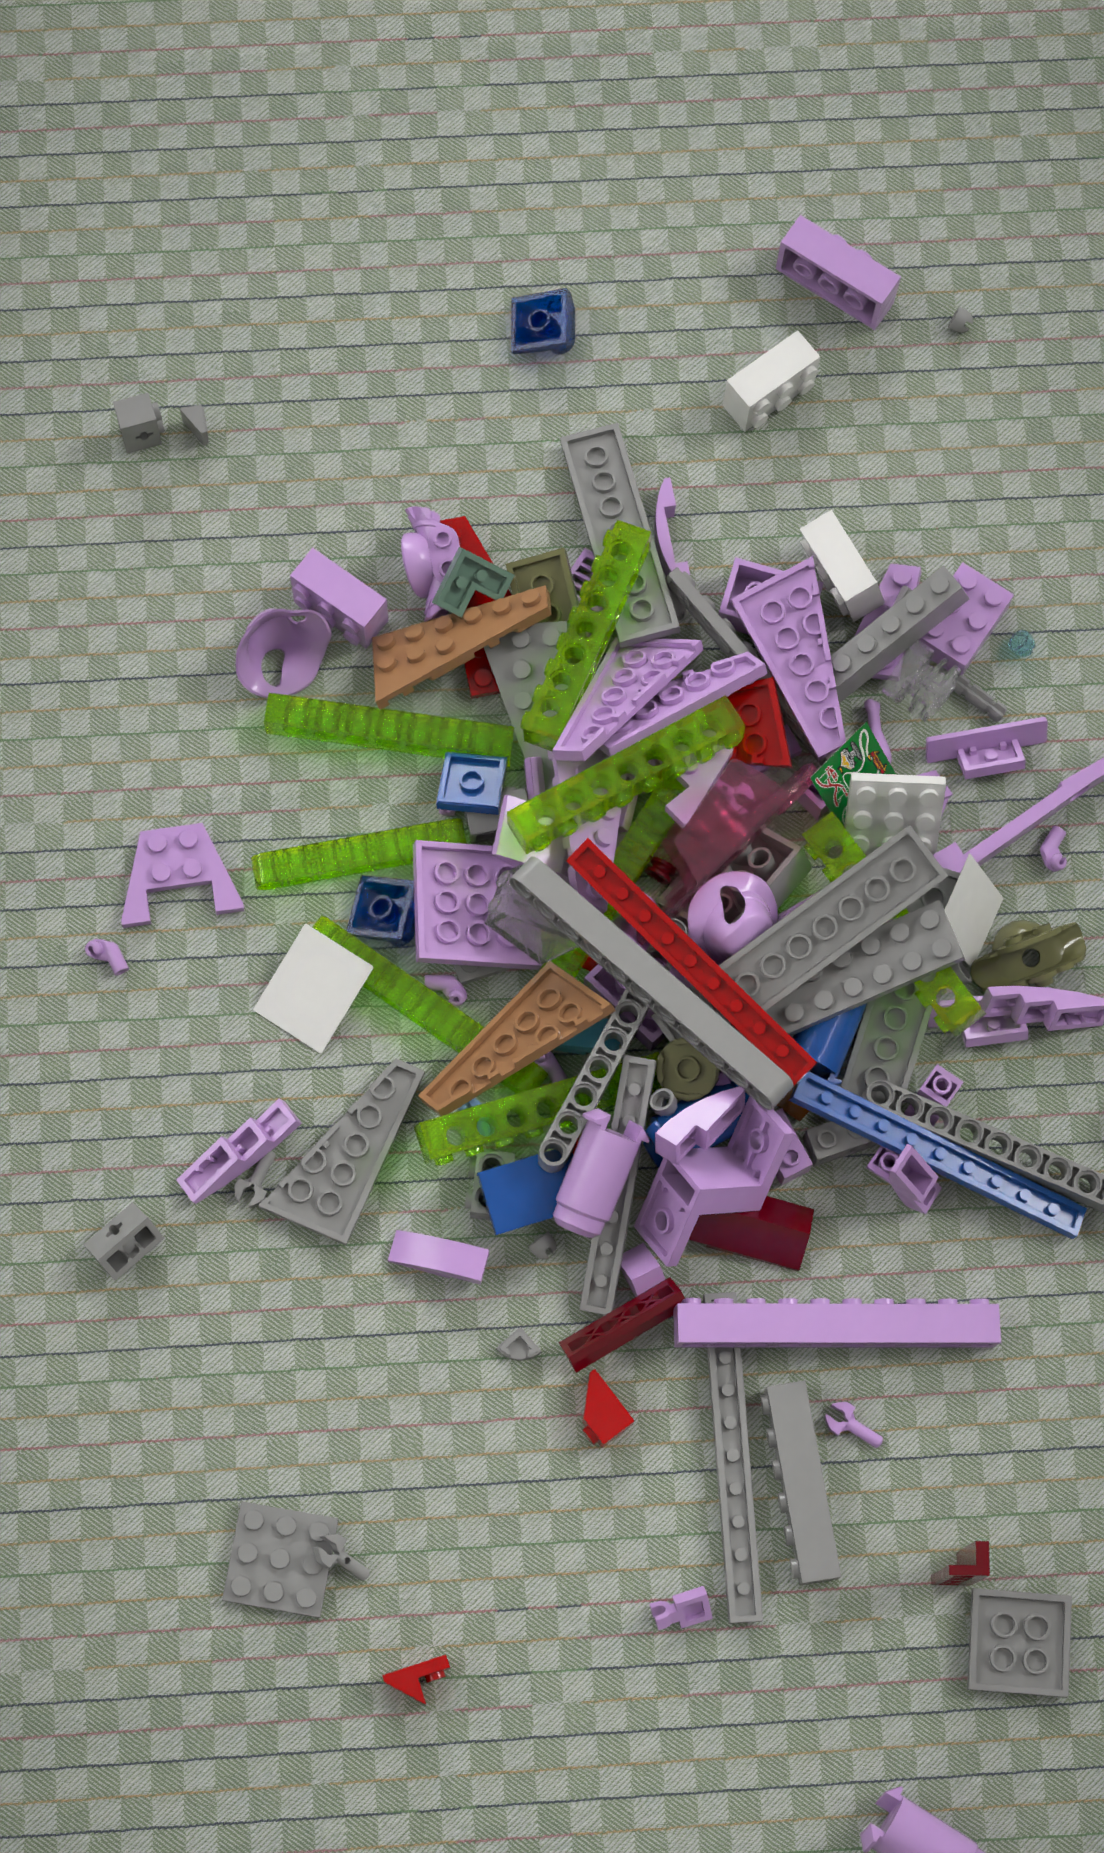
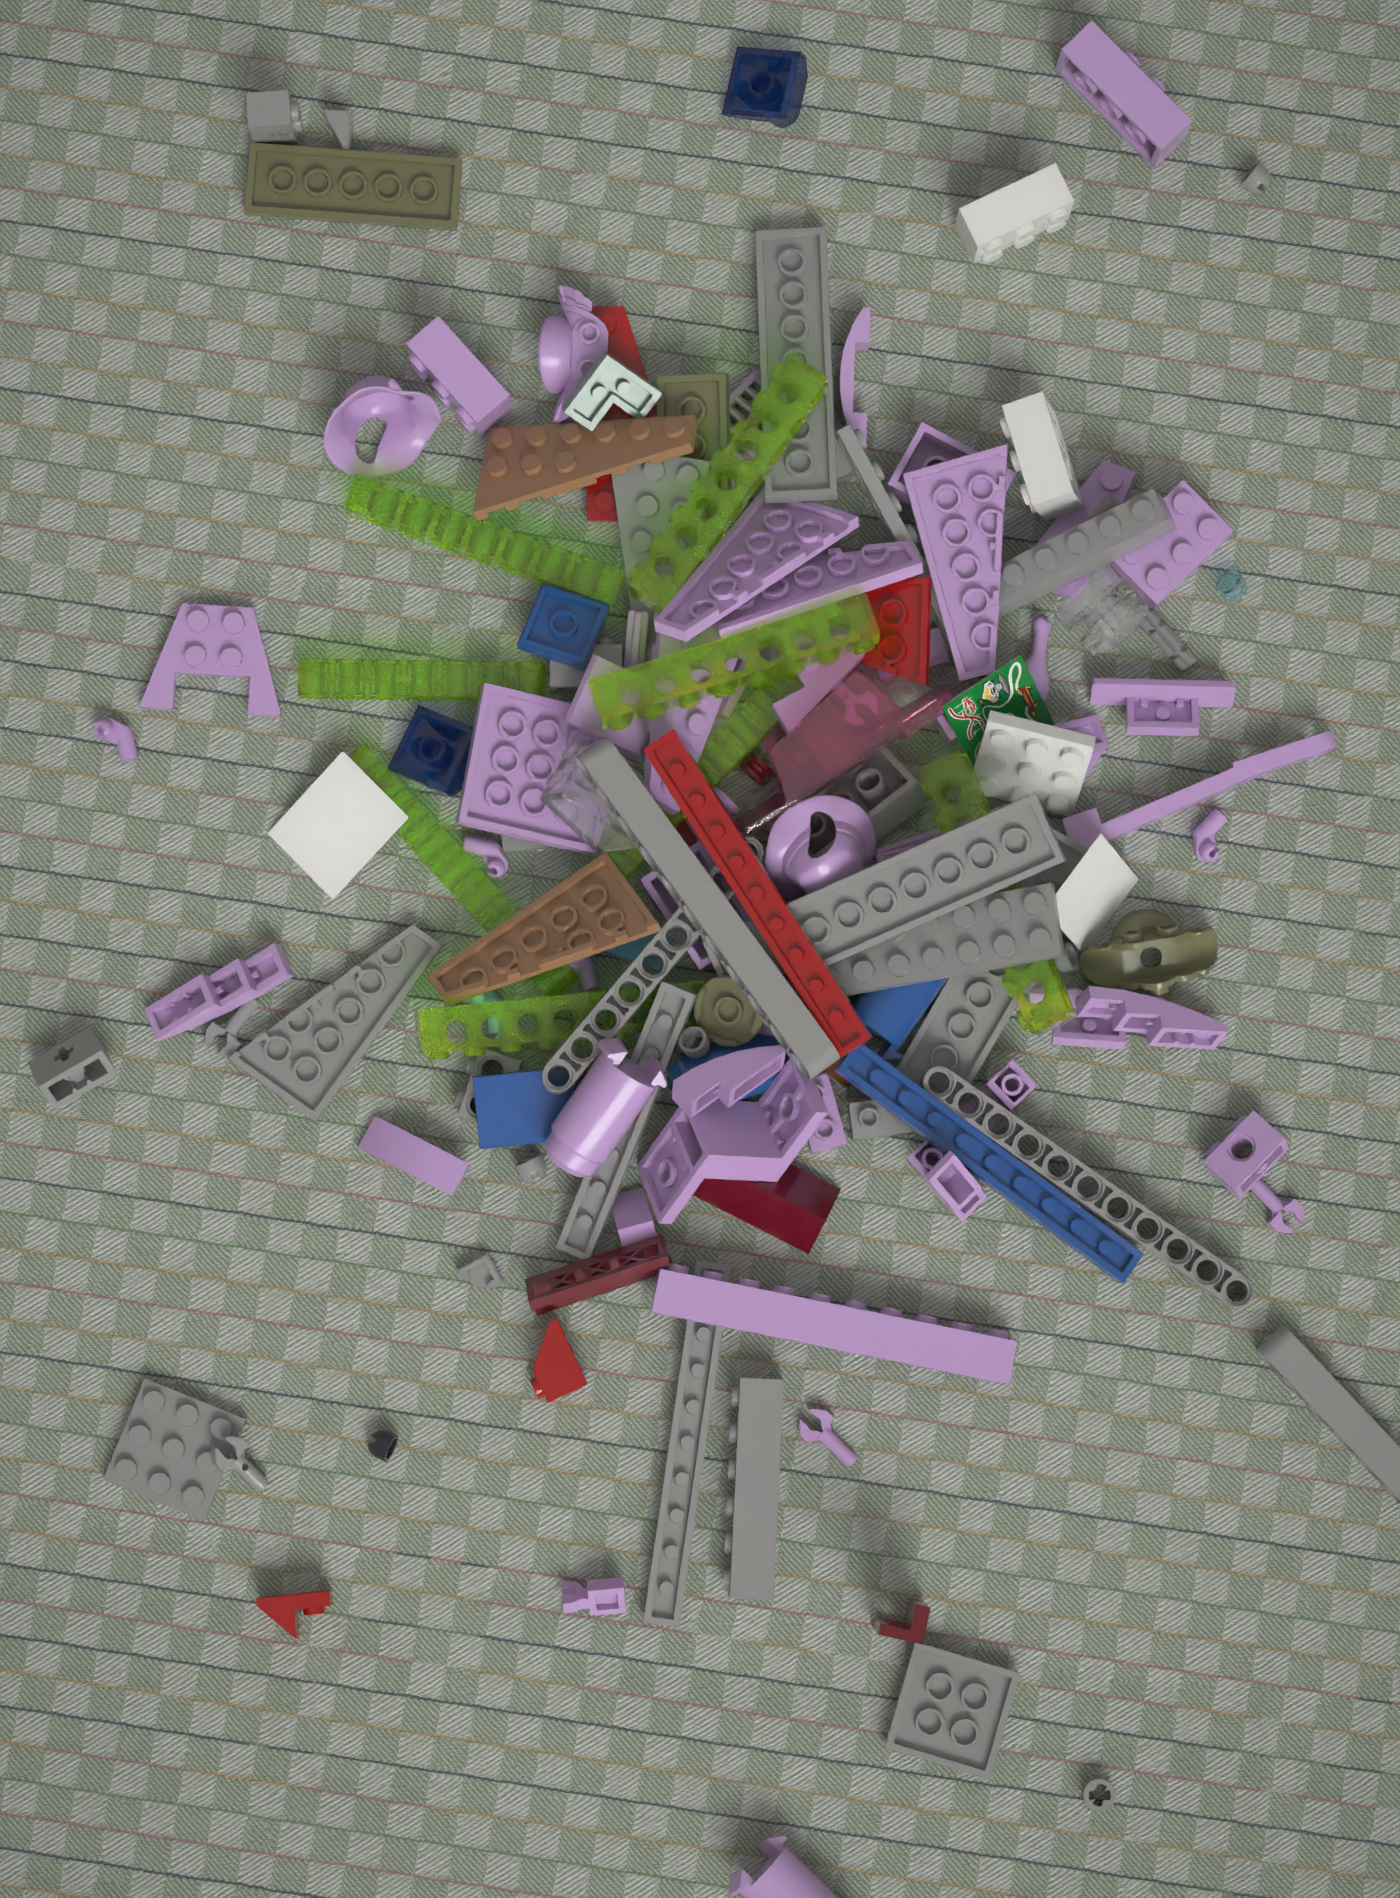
camera: 15 degrees right, 10 degrees up
(216, 467) = (353, 186): none -> olive plate
(466, 1515) = (384, 1445): none -> black hinge

